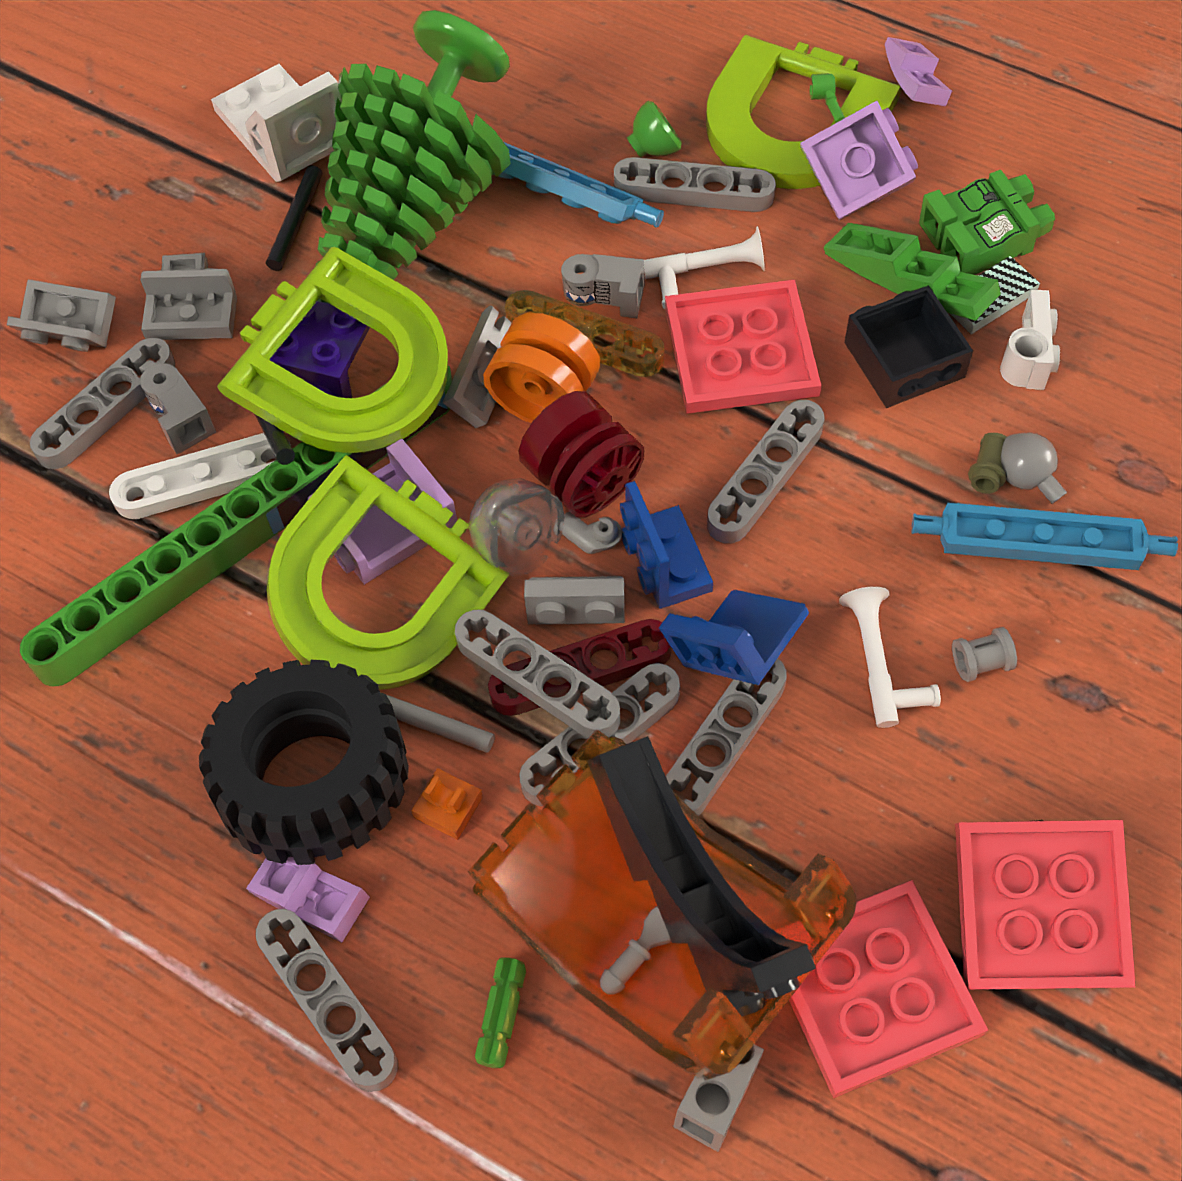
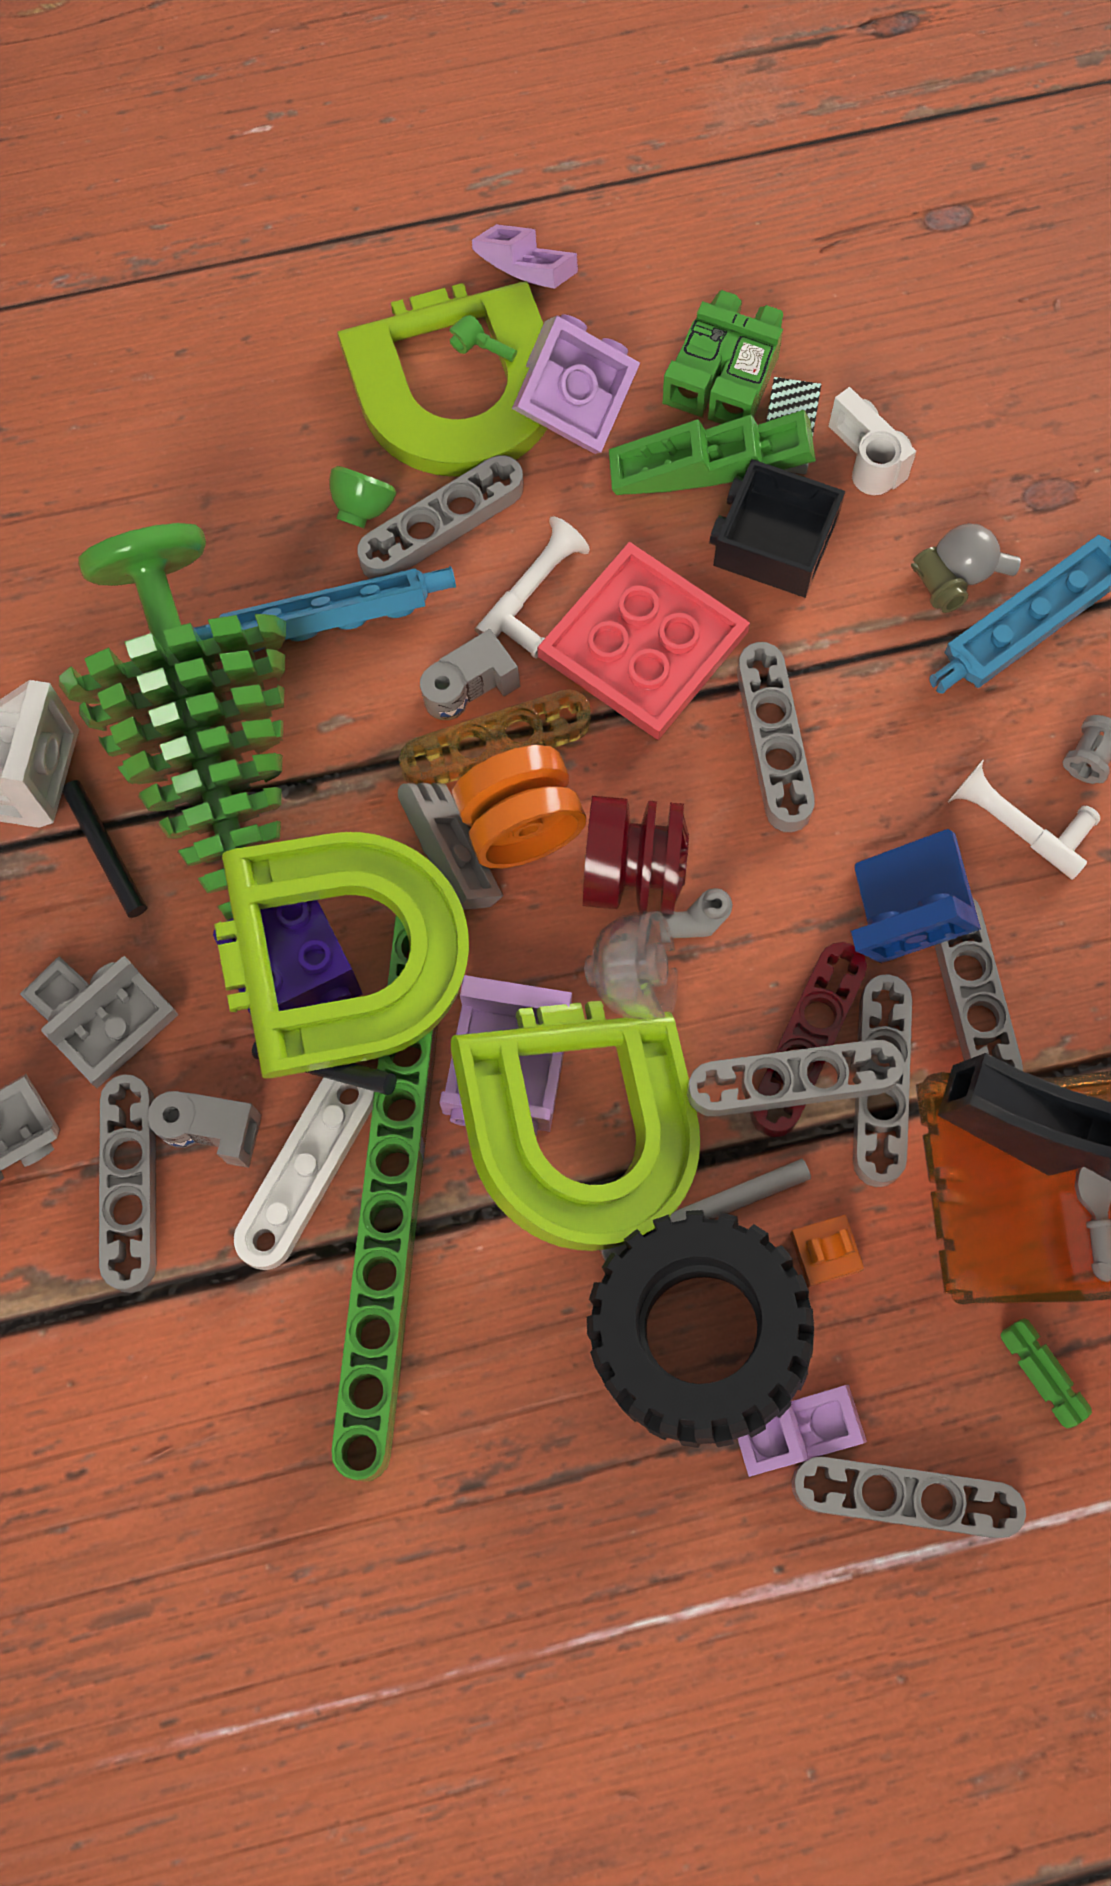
camera: 45 degrees left, 10 degrees up
(574, 600) = (748, 982): light grey bracket -> none
(665, 550) = (774, 880): blue bracket -> none

